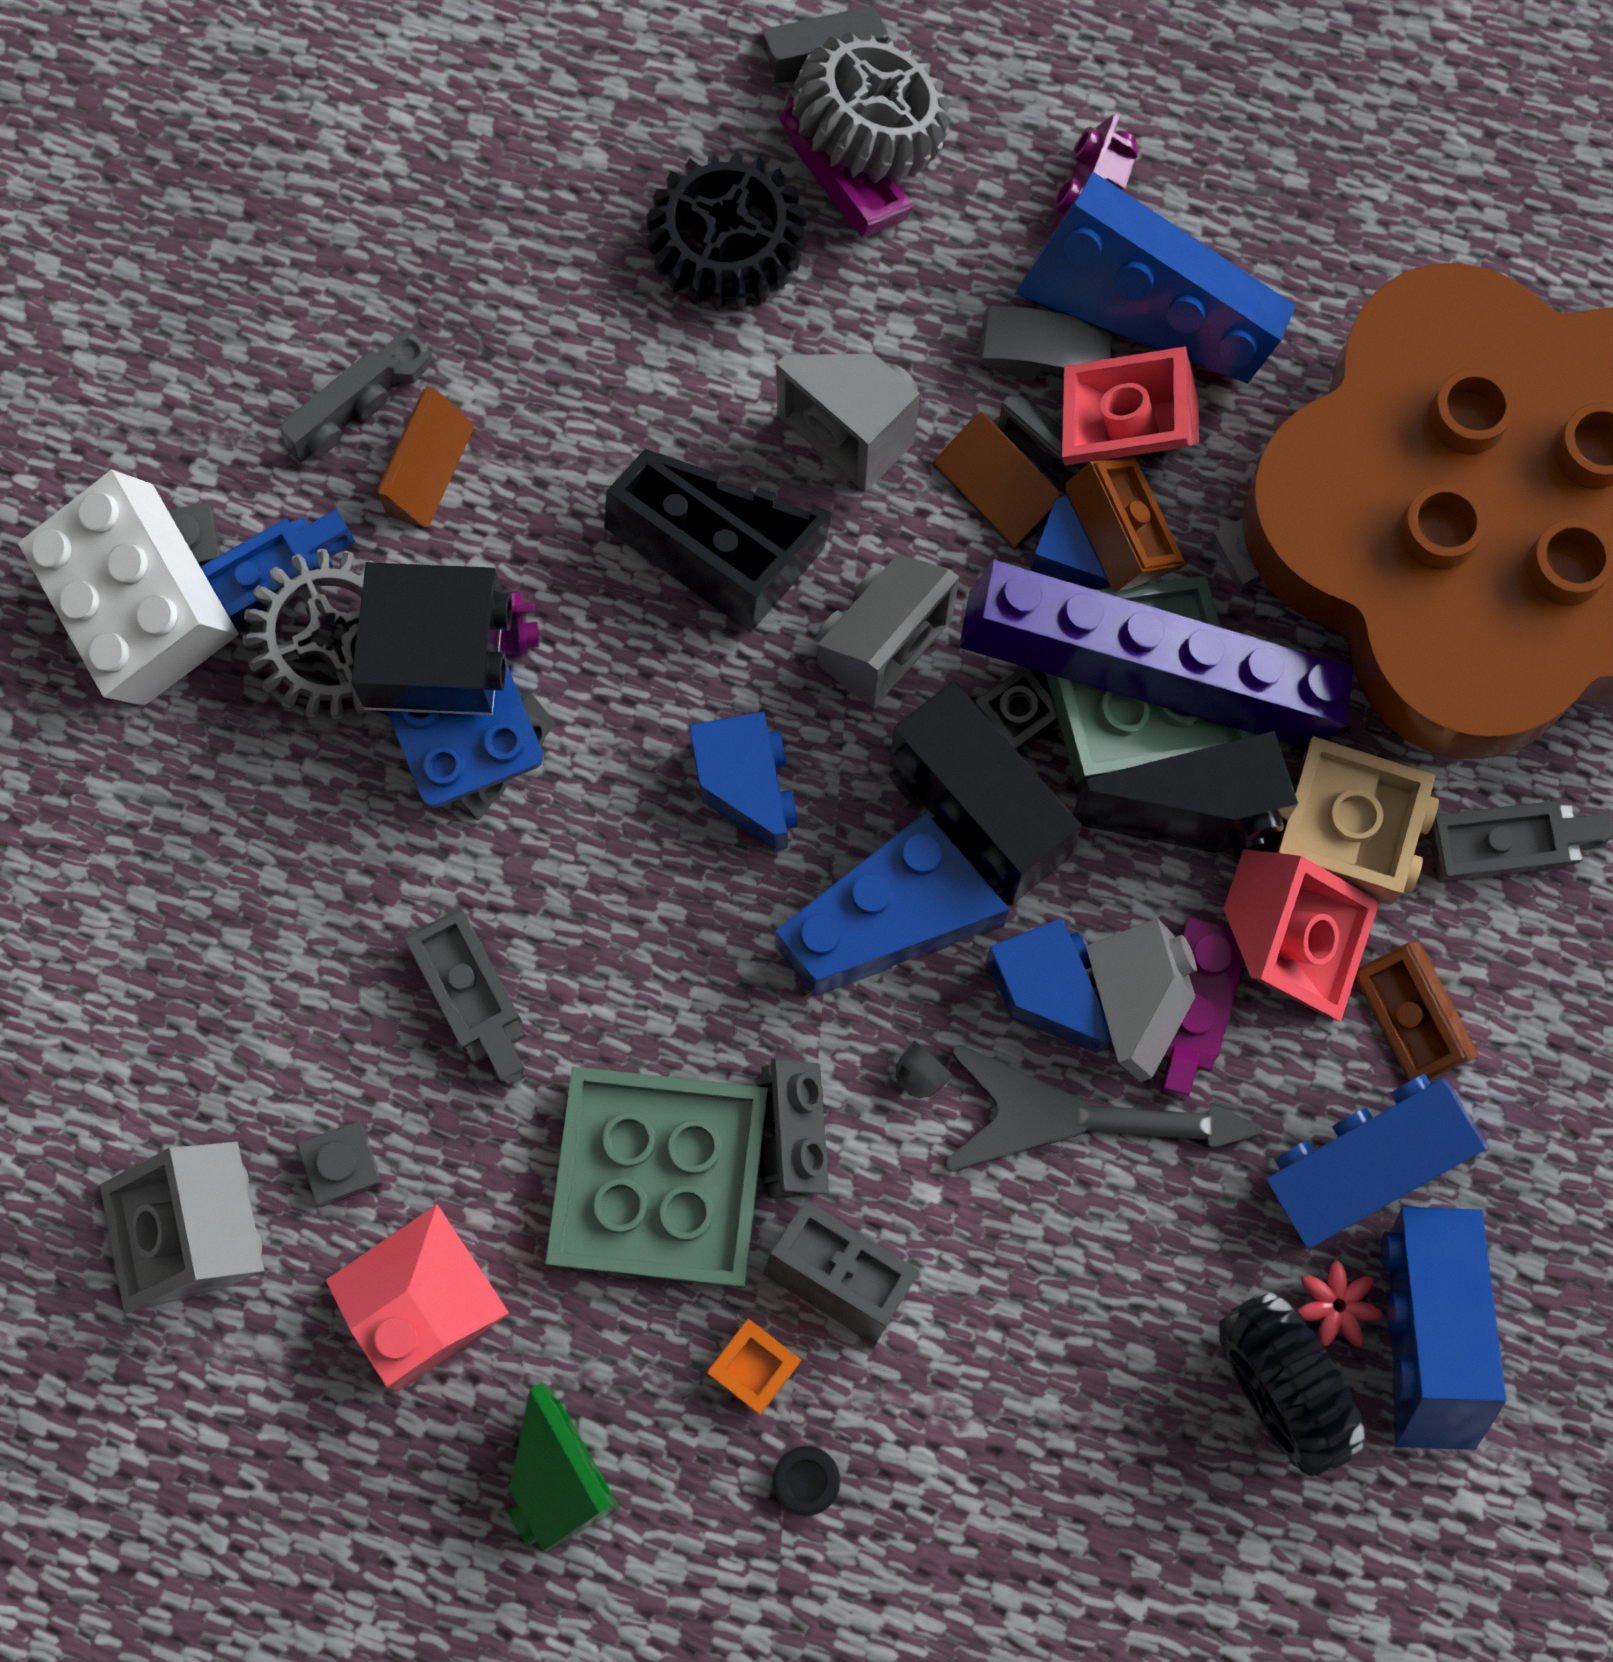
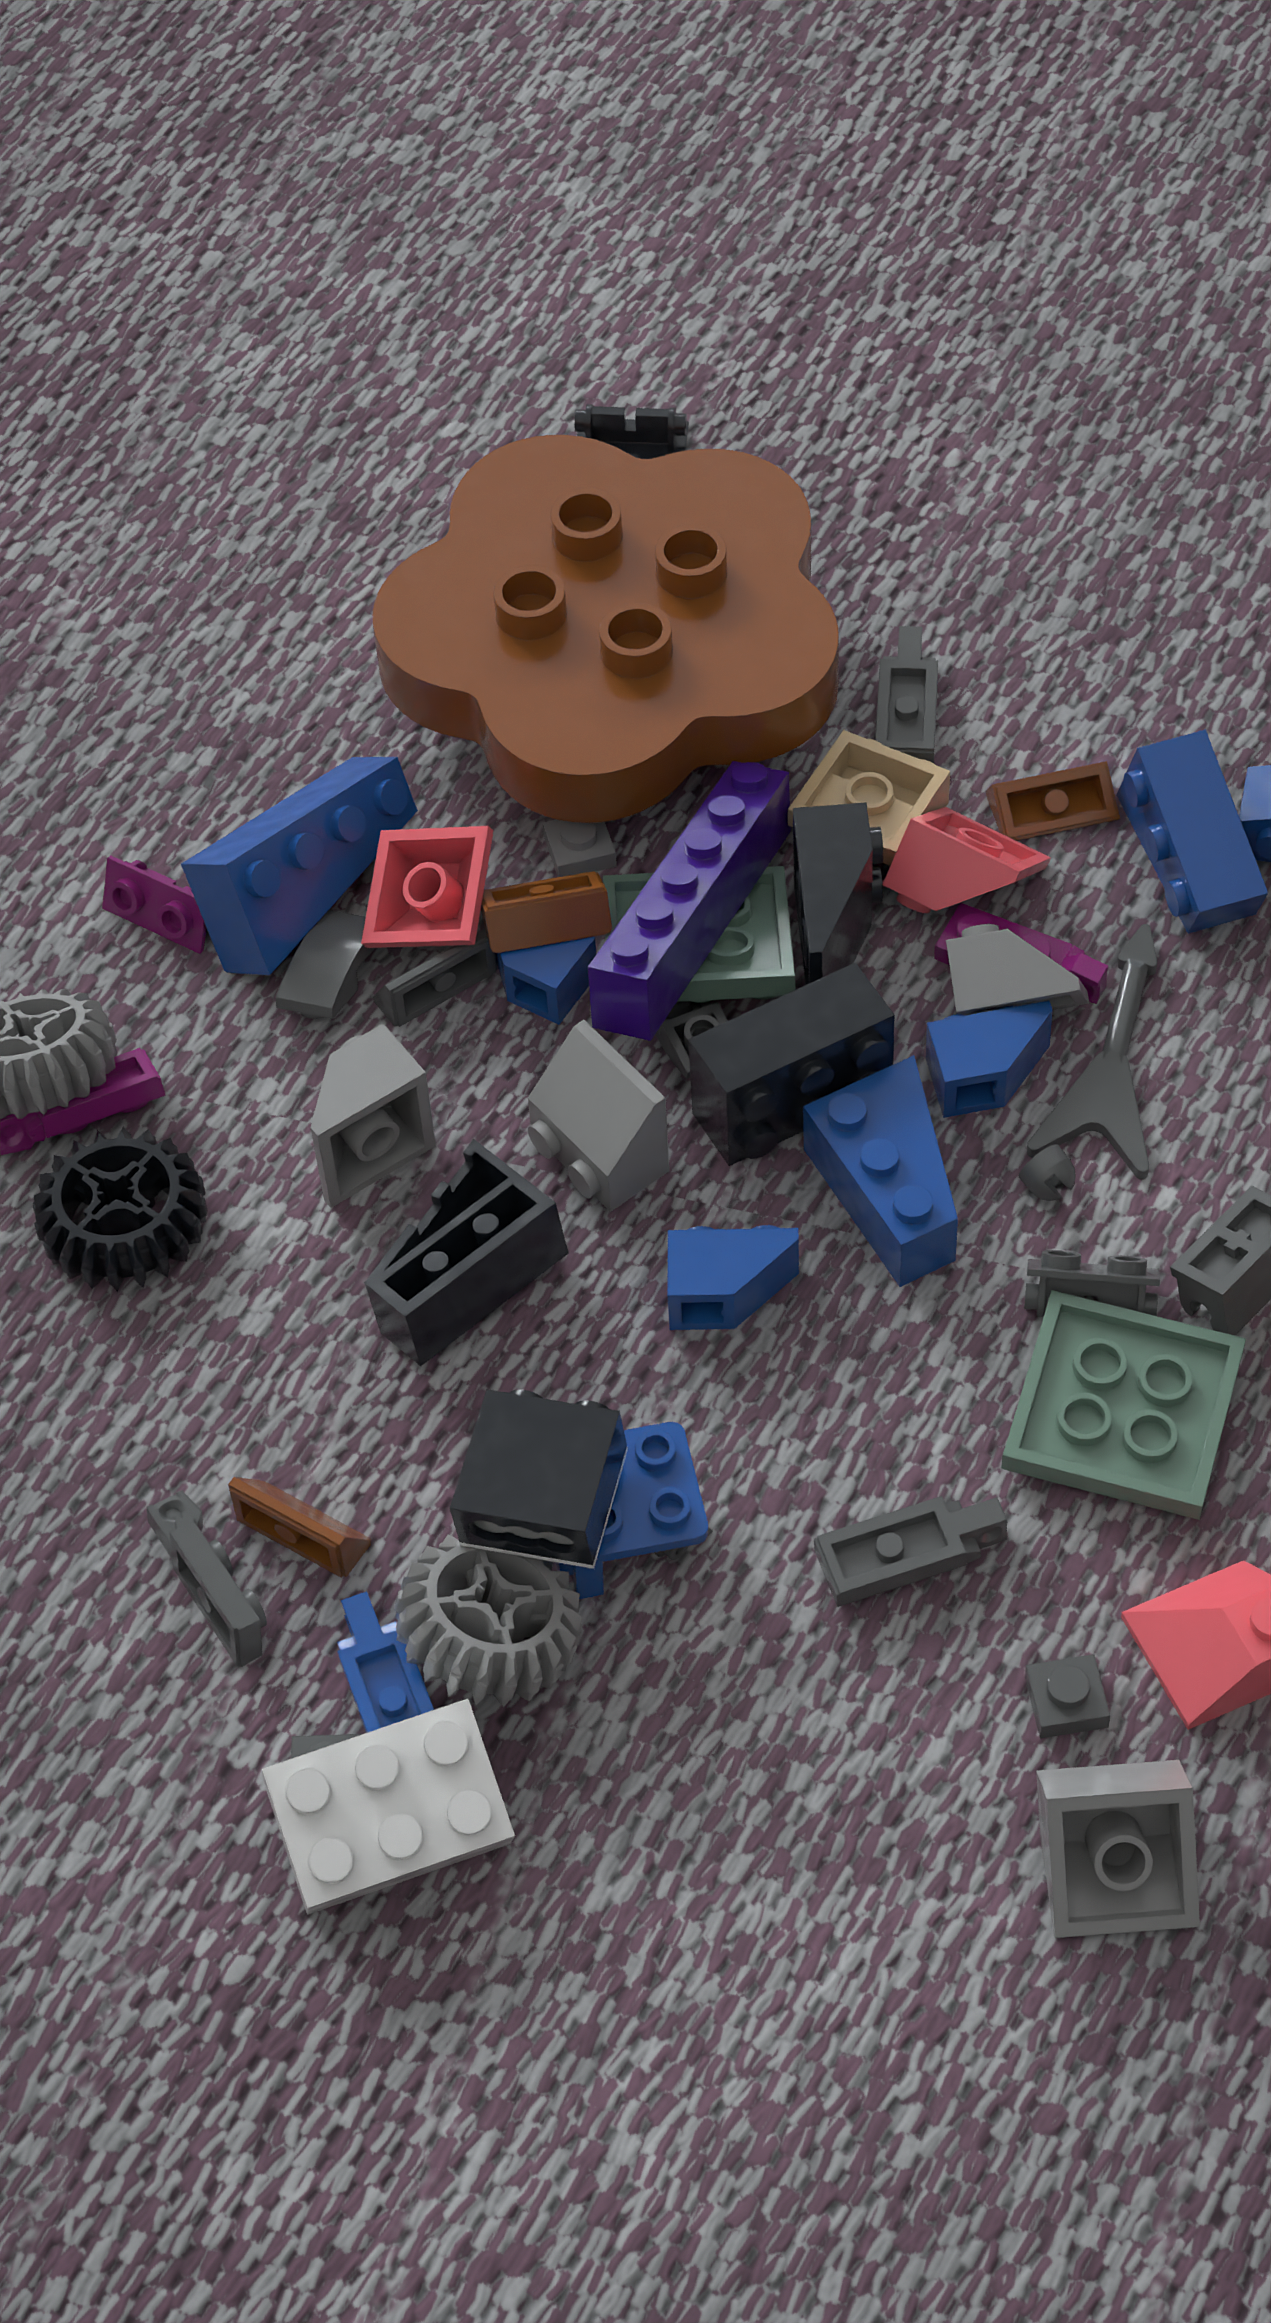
camera: 75 degrees left, 20 degrees down
(998, 480) = (460, 1023): dark orange slope -> none

